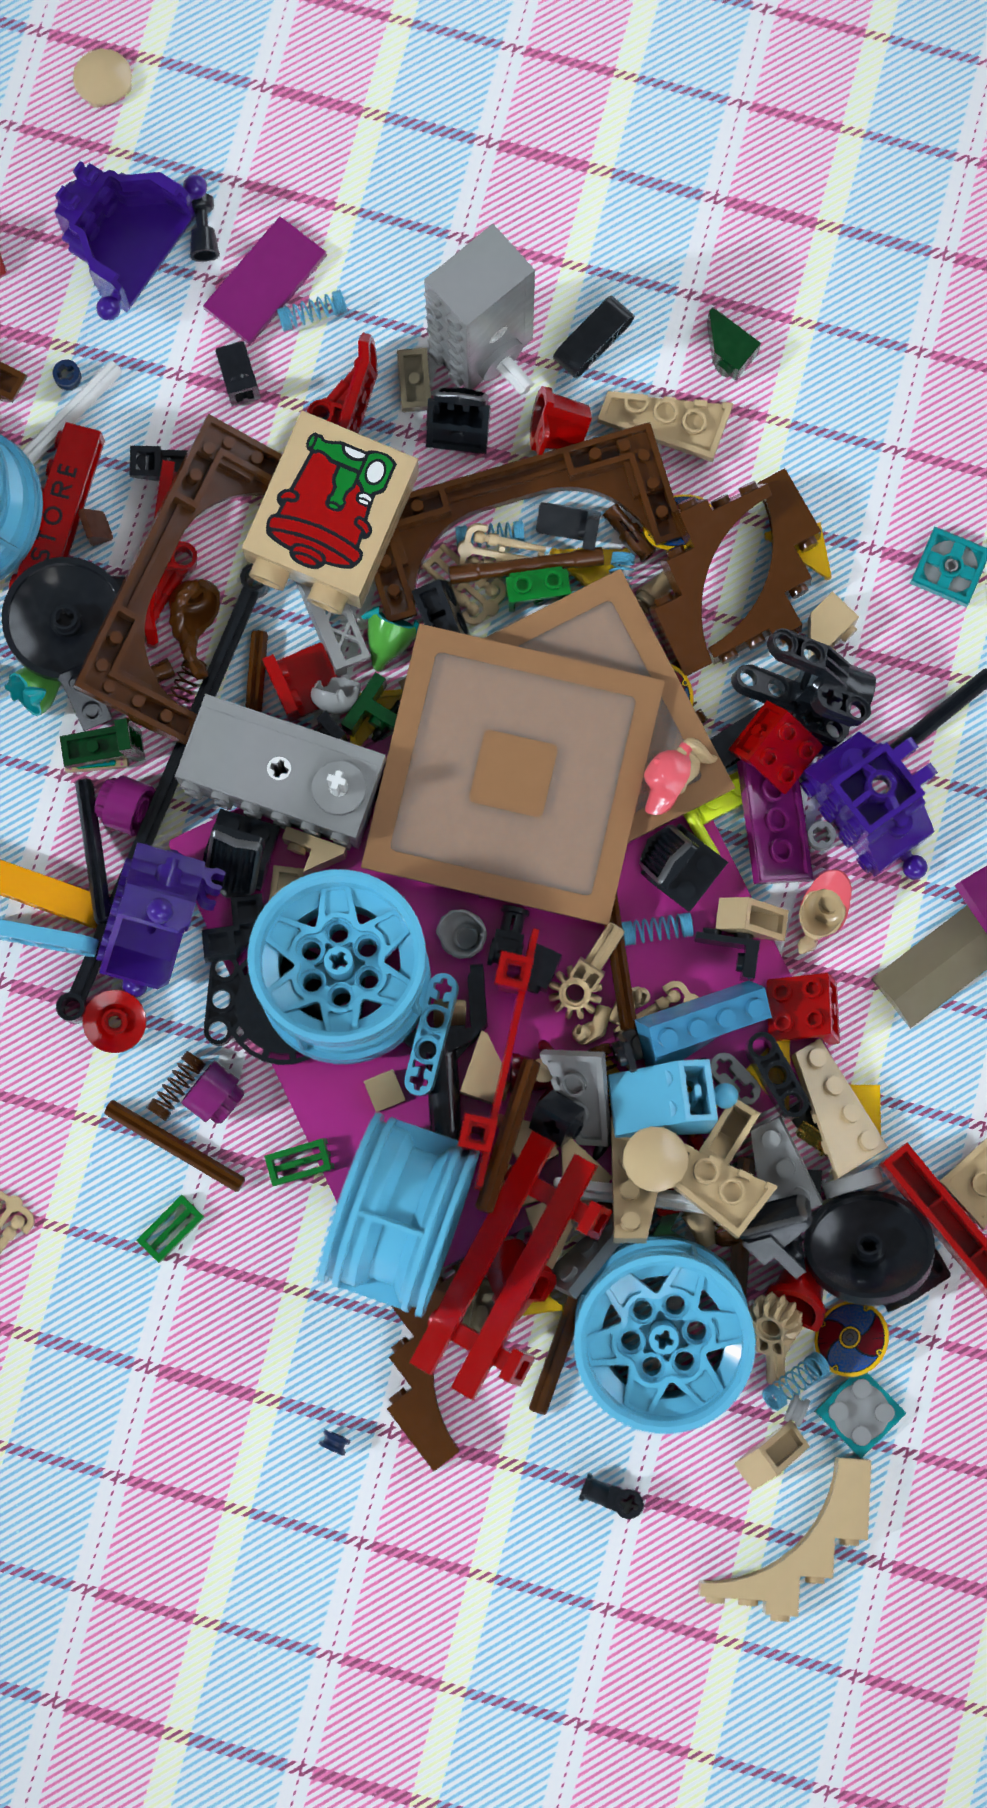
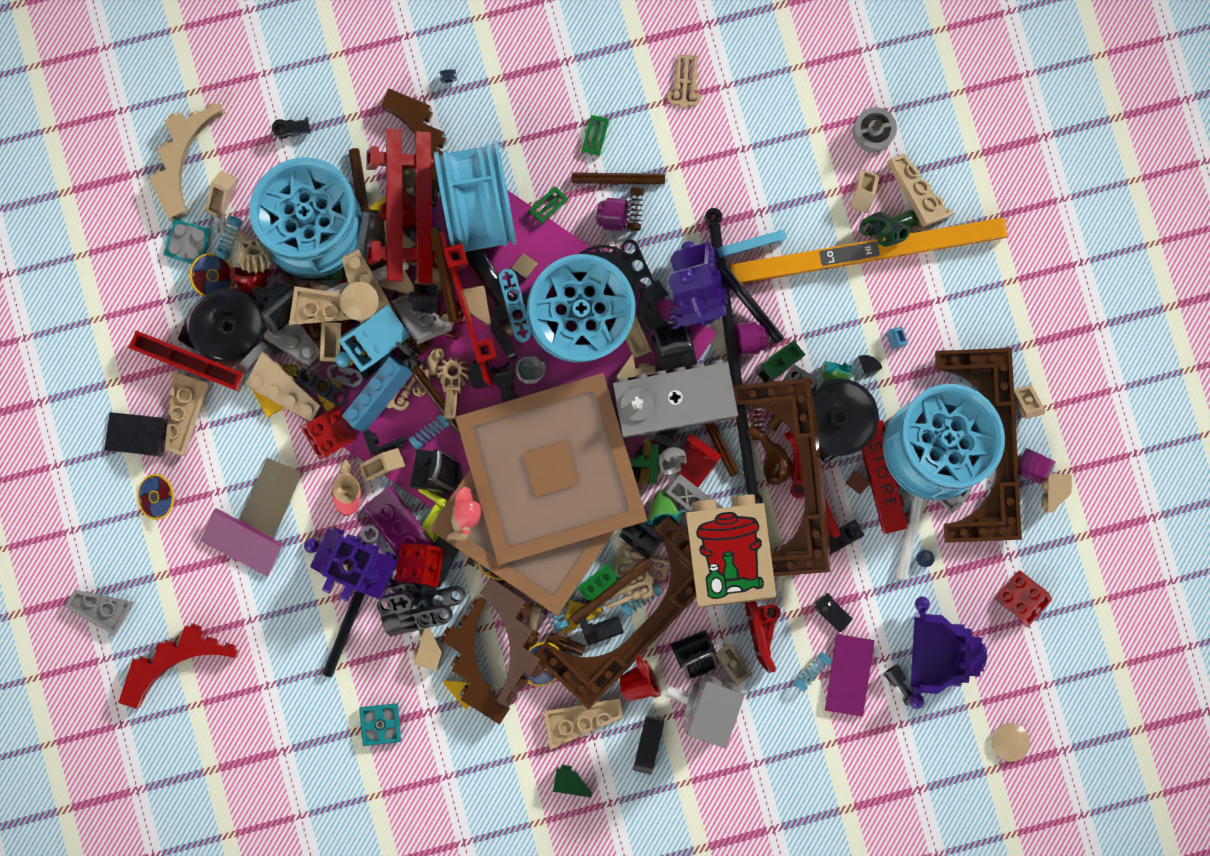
camera: 145 degrees right, 5 degrees up
(97, 1018) = (687, 213): red dish -> none

